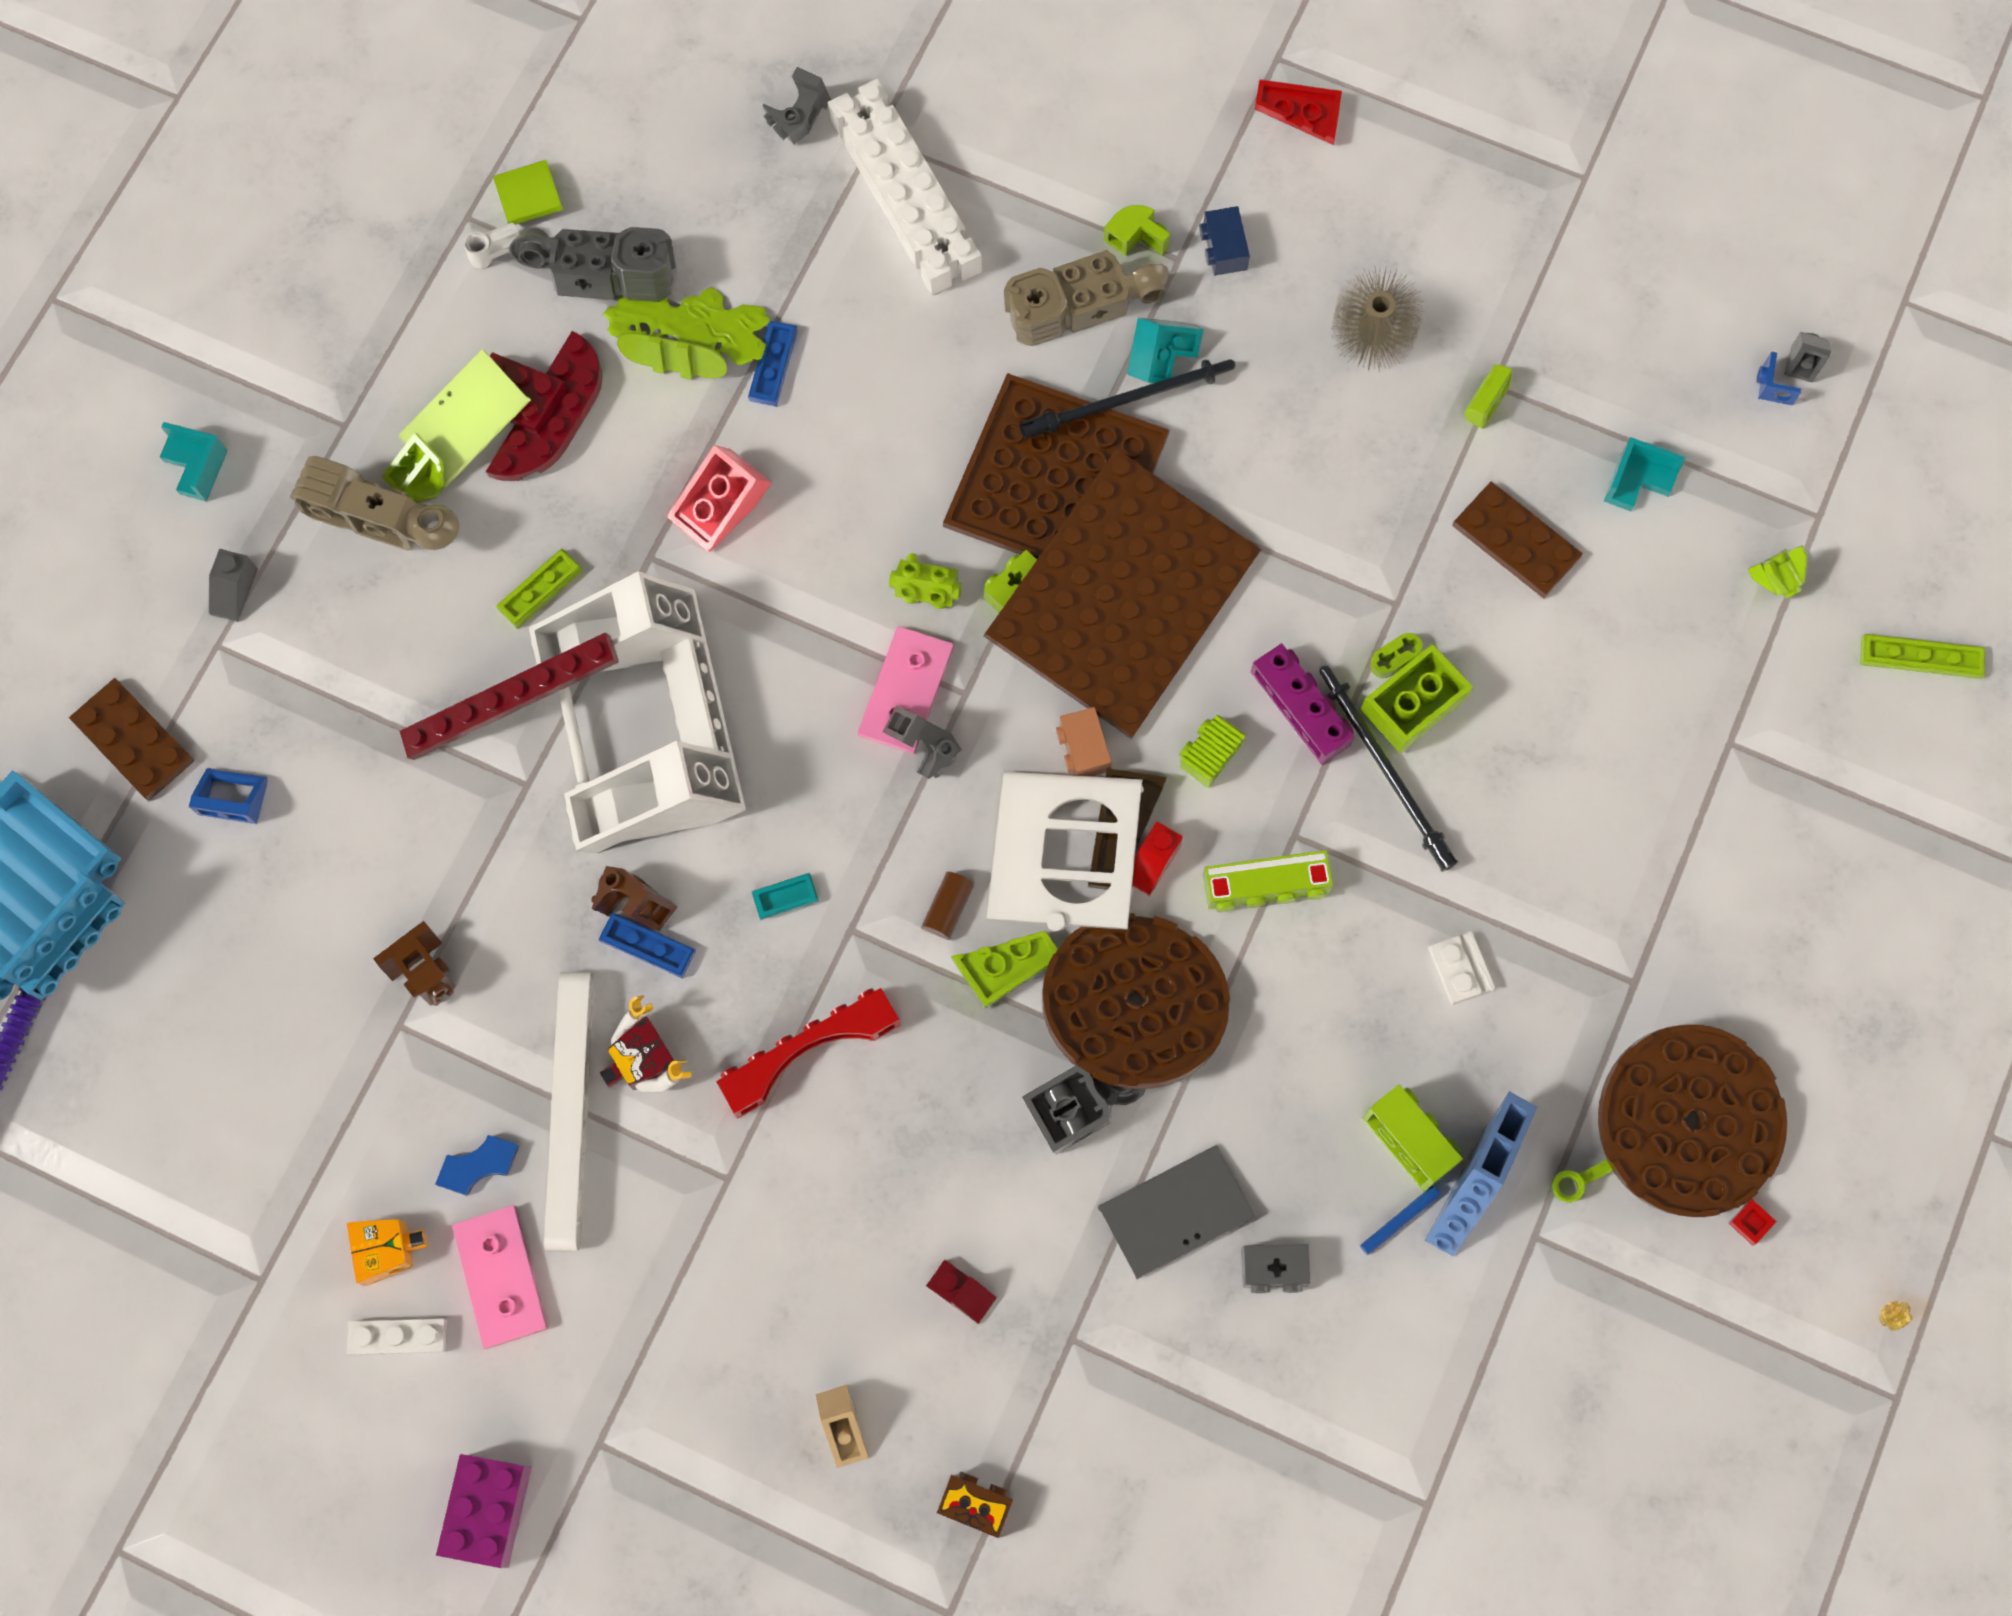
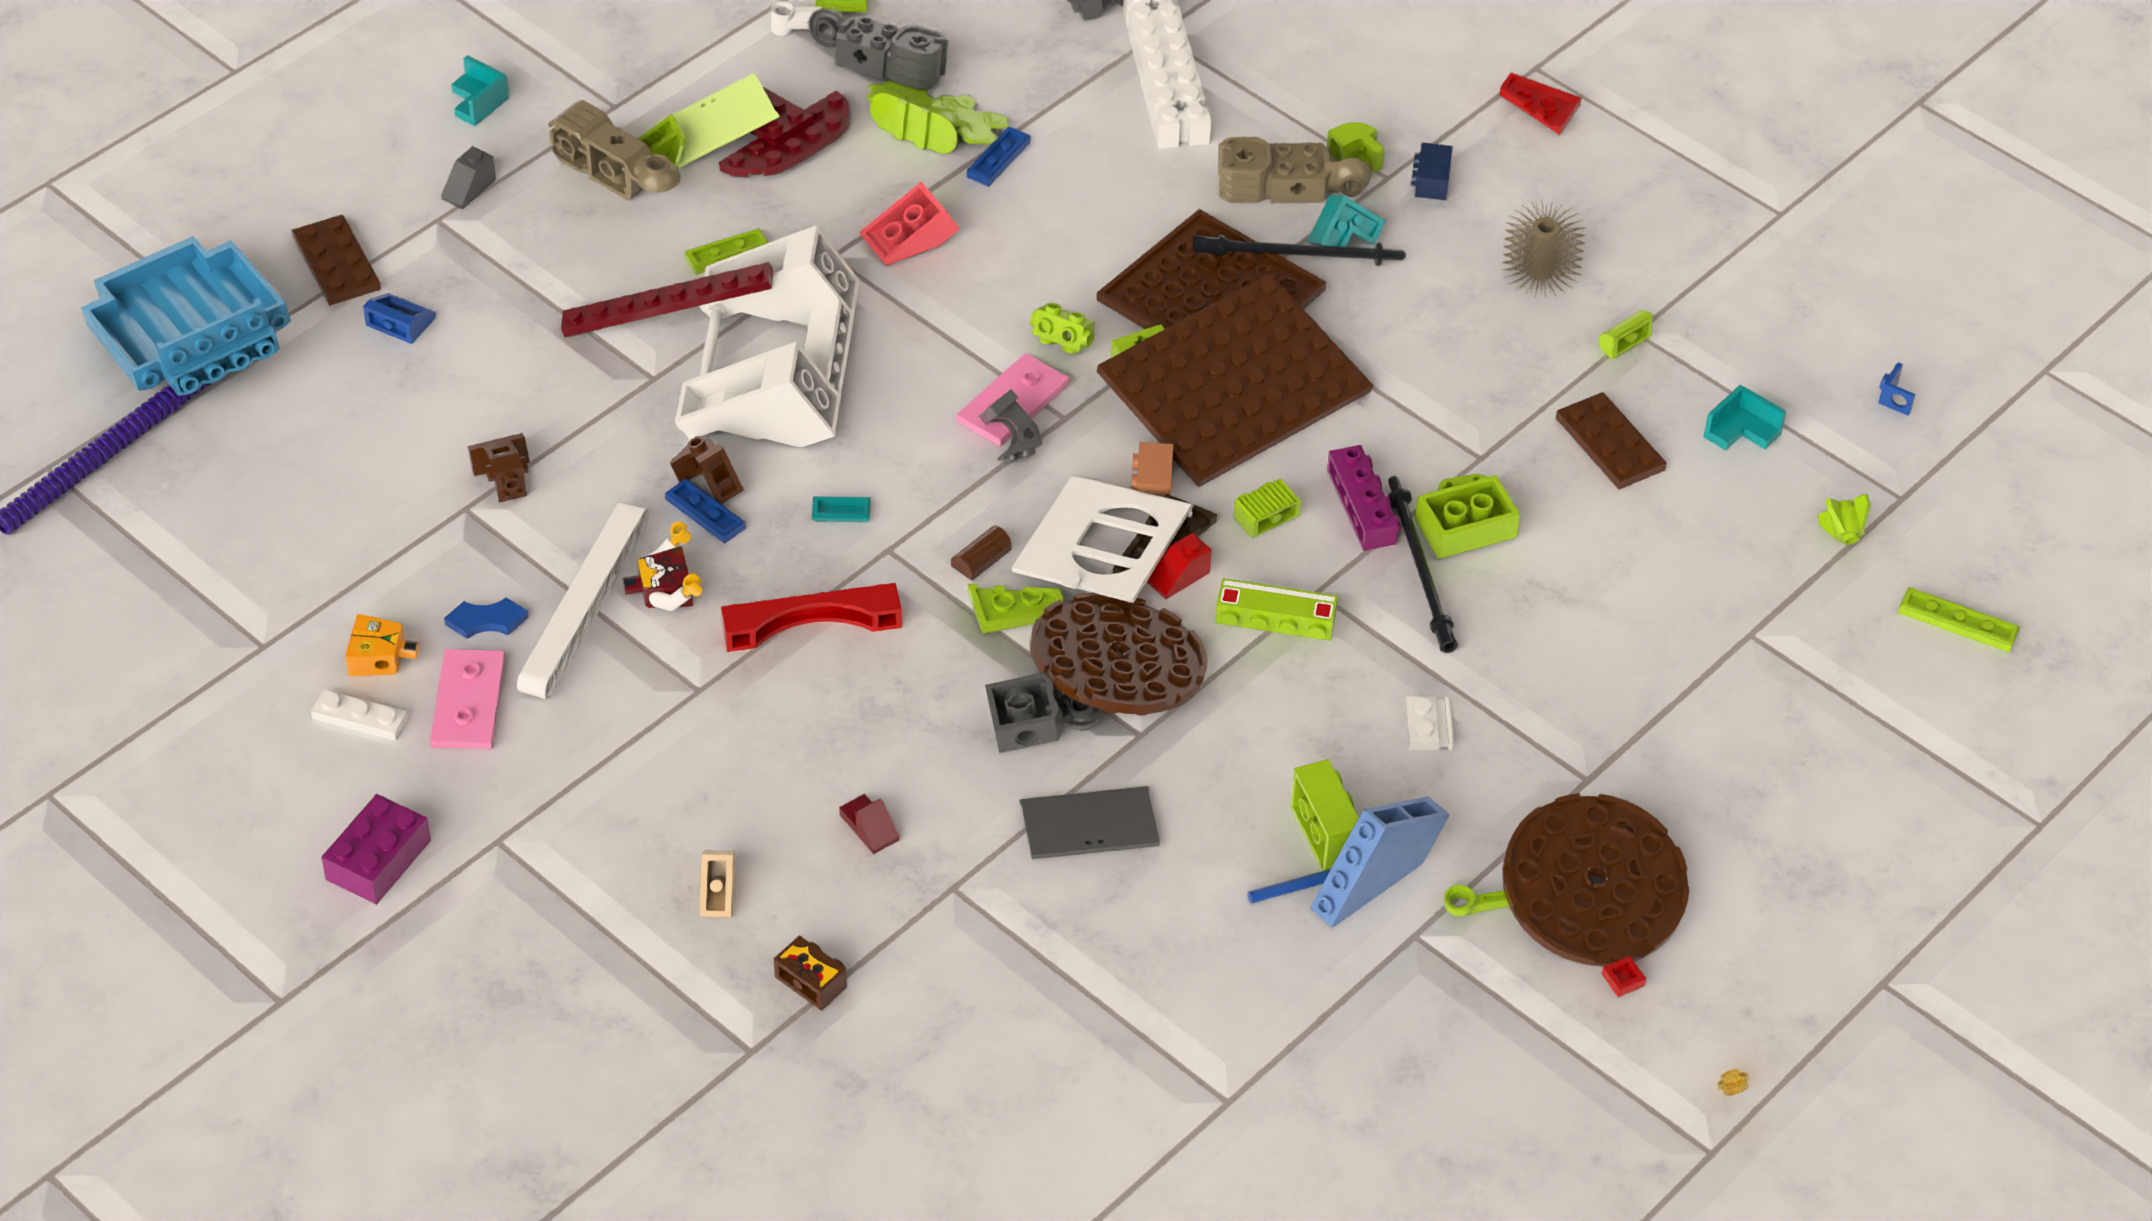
camera: 15 degrees right, 25 degrees down
(1258, 1258) = (1162, 880): dark grey brick -> none
(1807, 356) = (1931, 378): dark grey slope -> none

